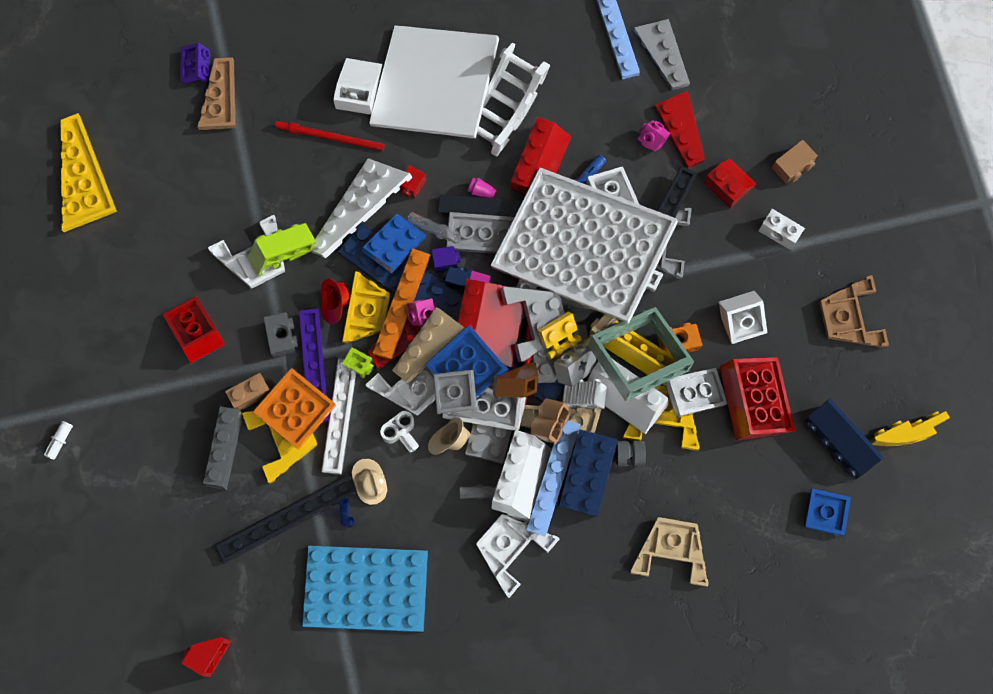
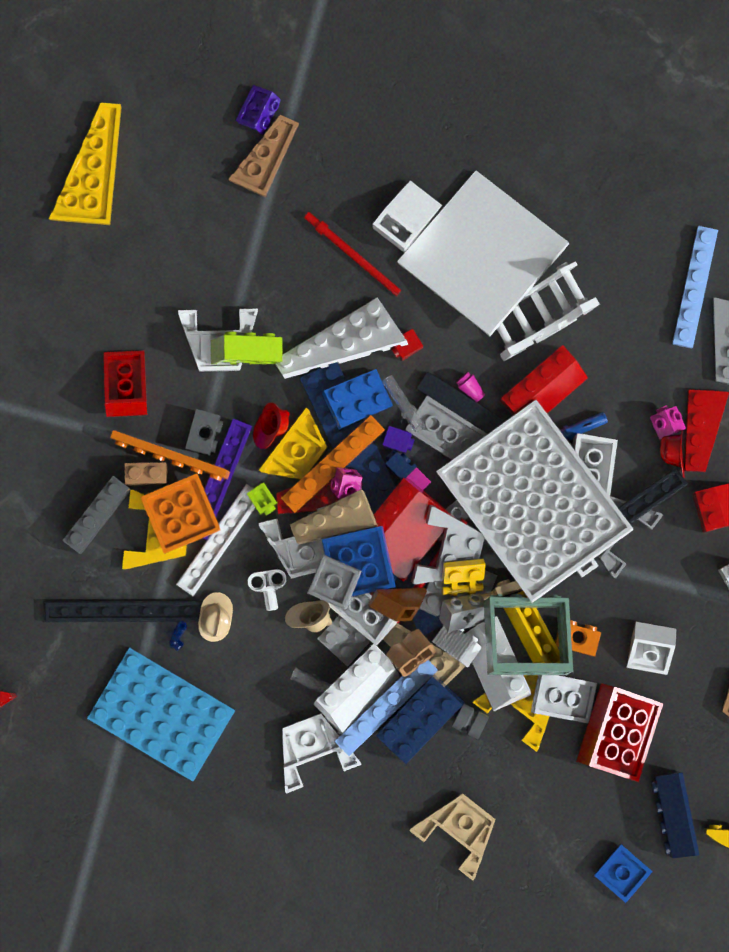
camera: 30 degrees right, 10 degrees up
(266, 365) = (177, 458): none -> orange plate
(670, 153) = (672, 451): none -> red piece

